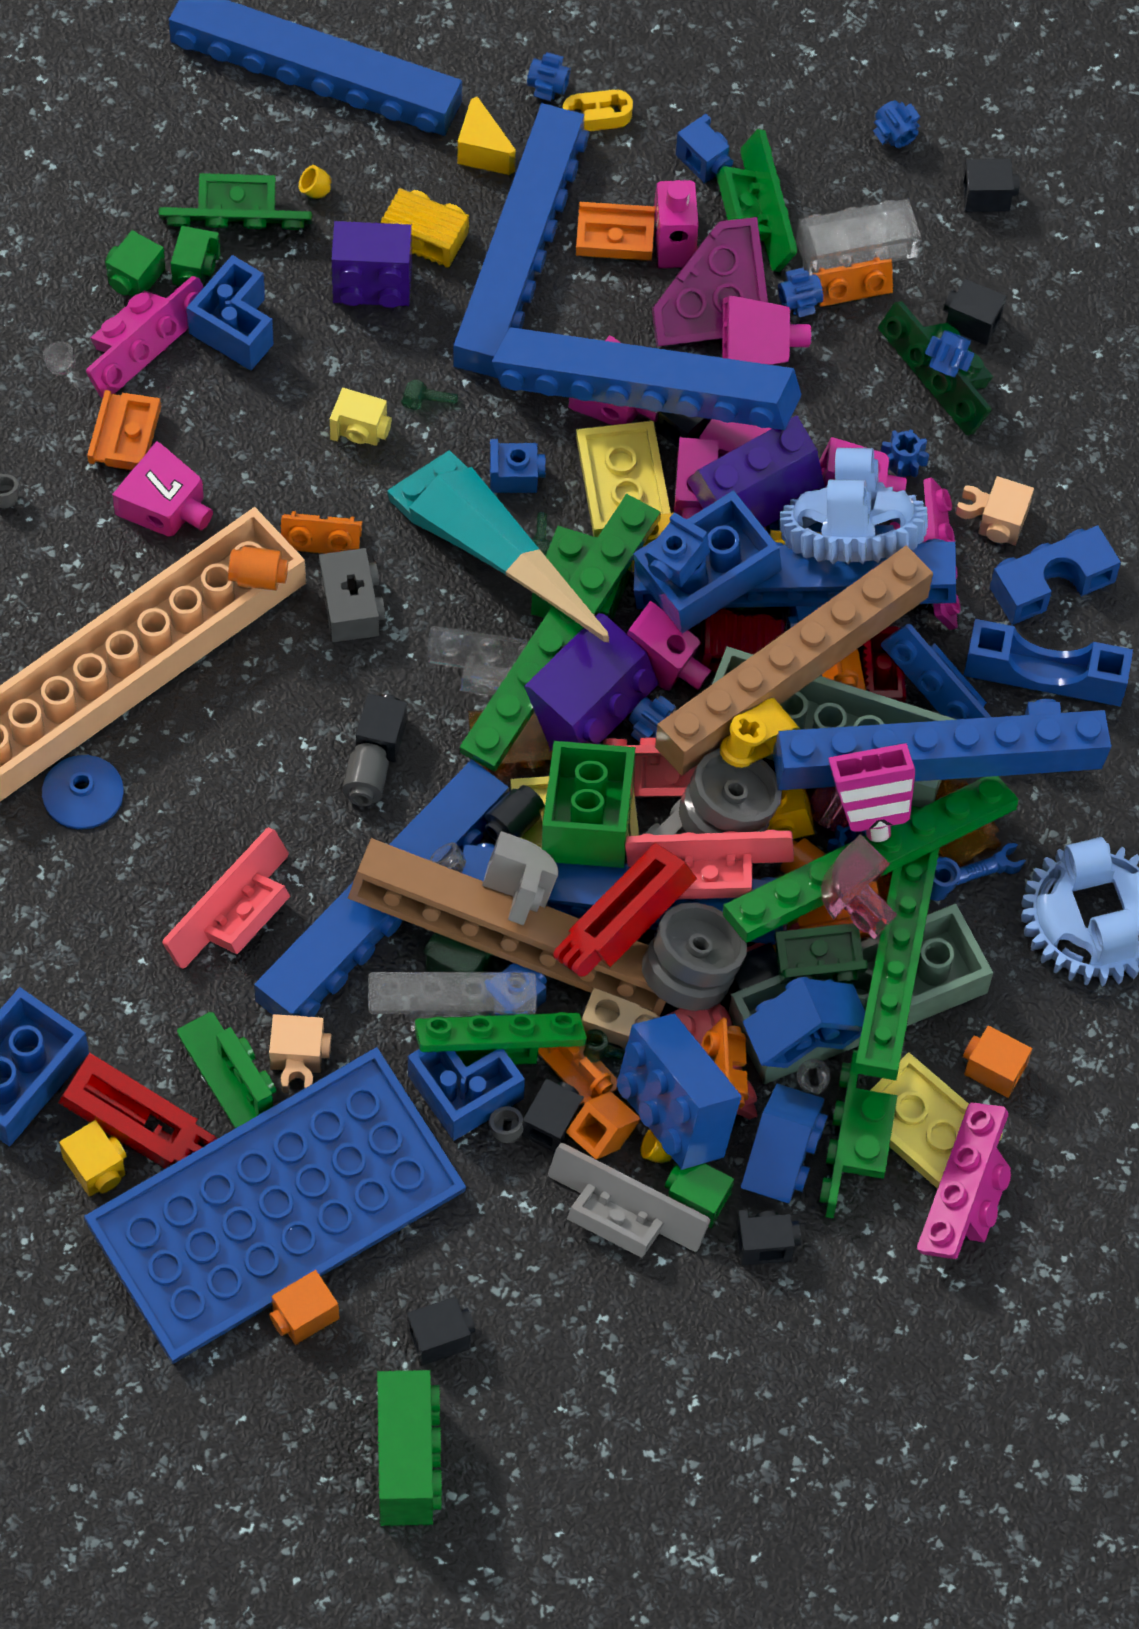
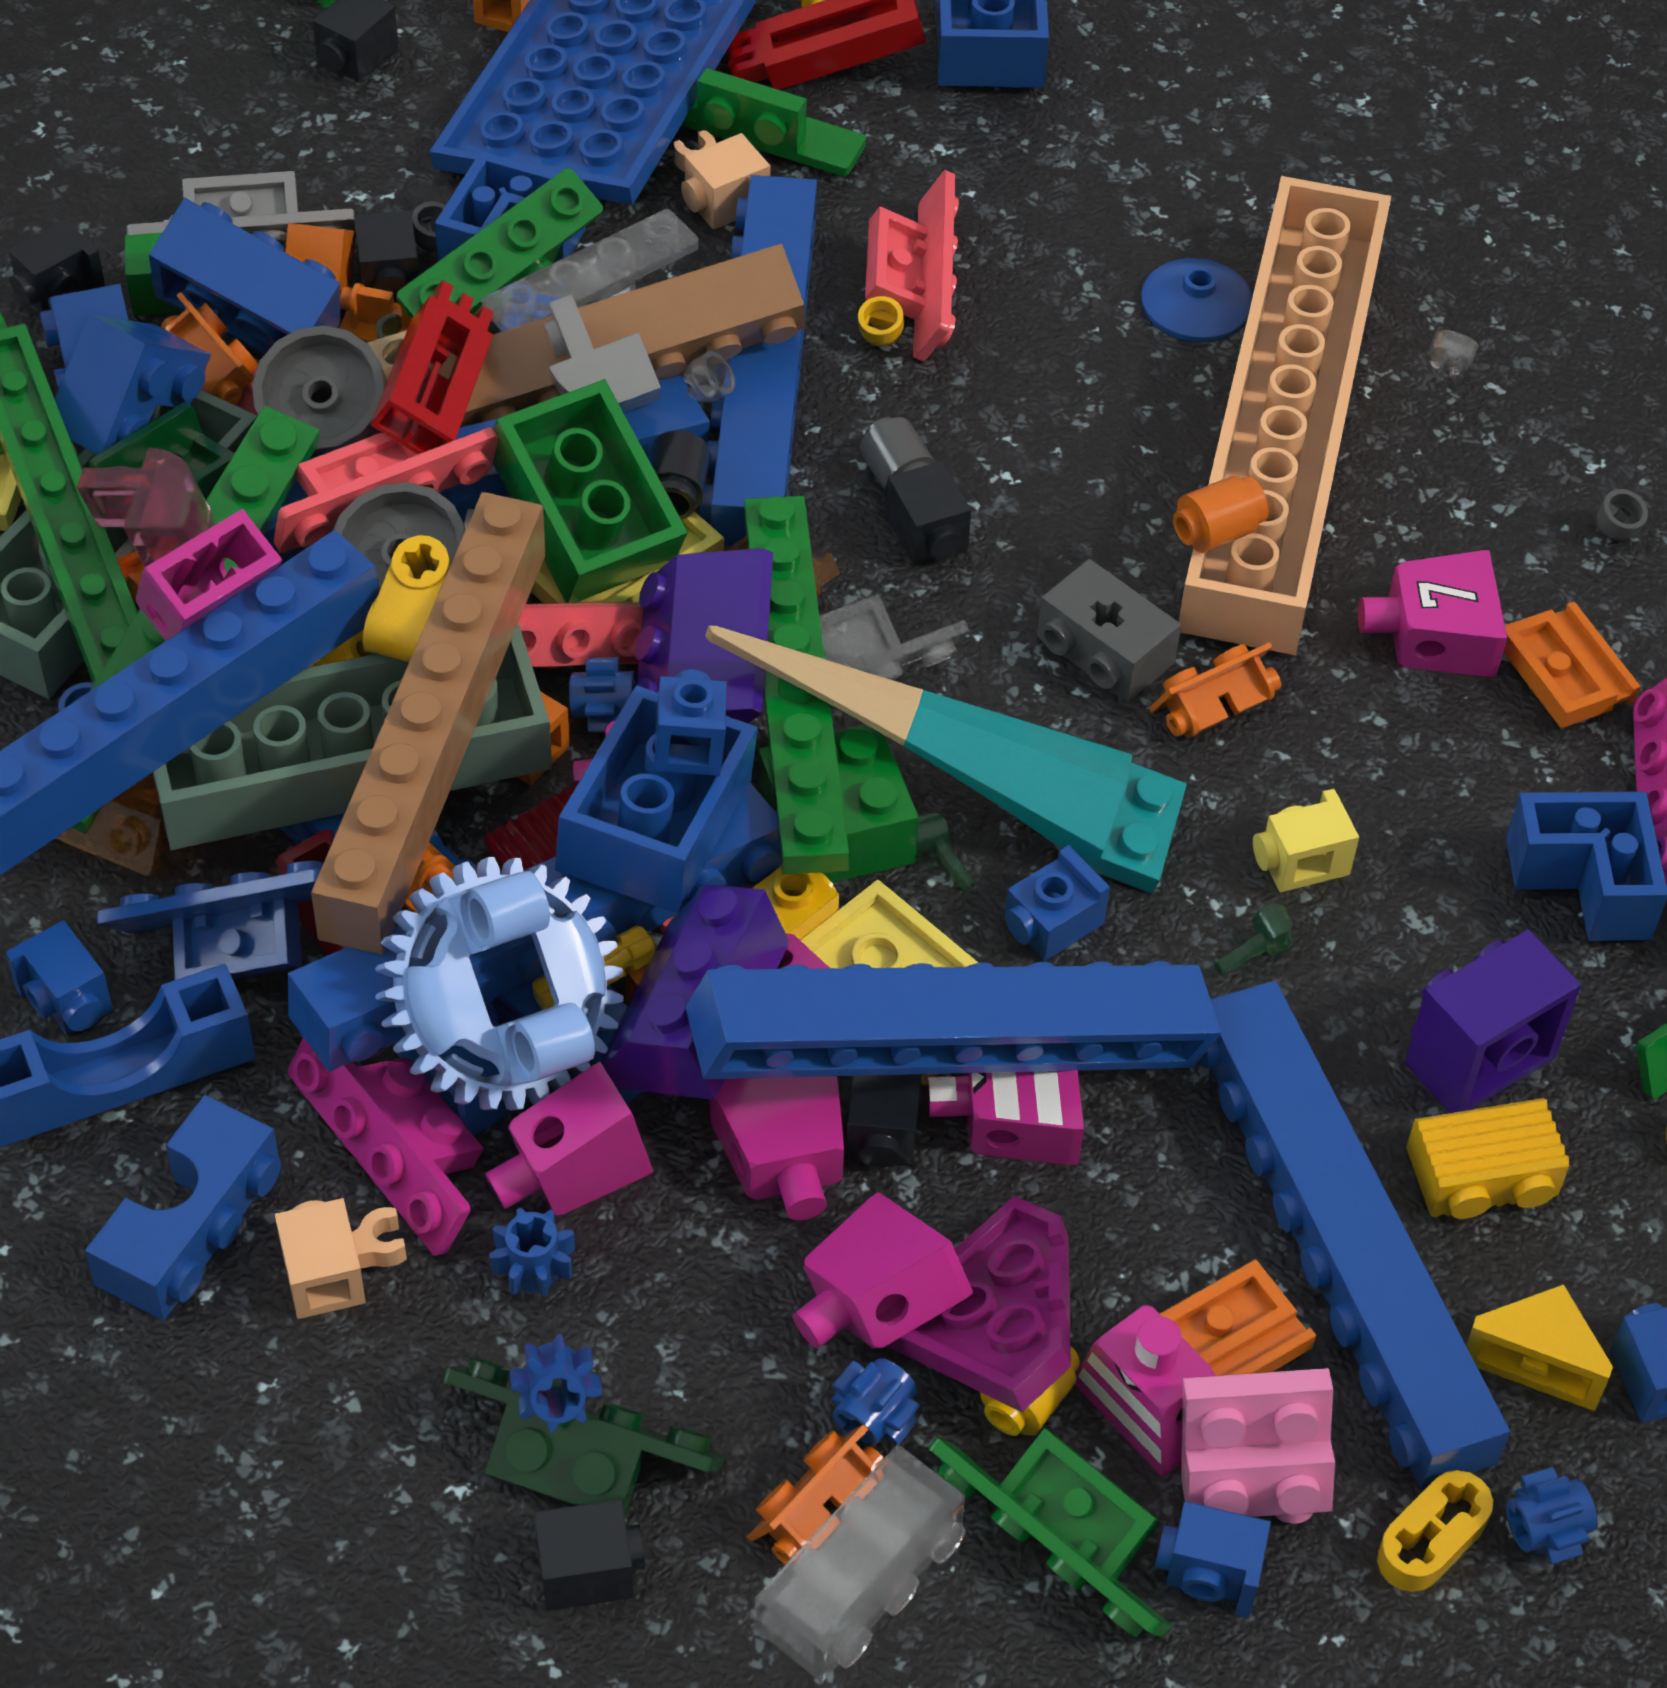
camera: 145 degrees right, 10 degrees down
(298, 874) = (883, 314): none -> yellow hinge
(652, 159) = (1259, 1443): none -> bright pink plate

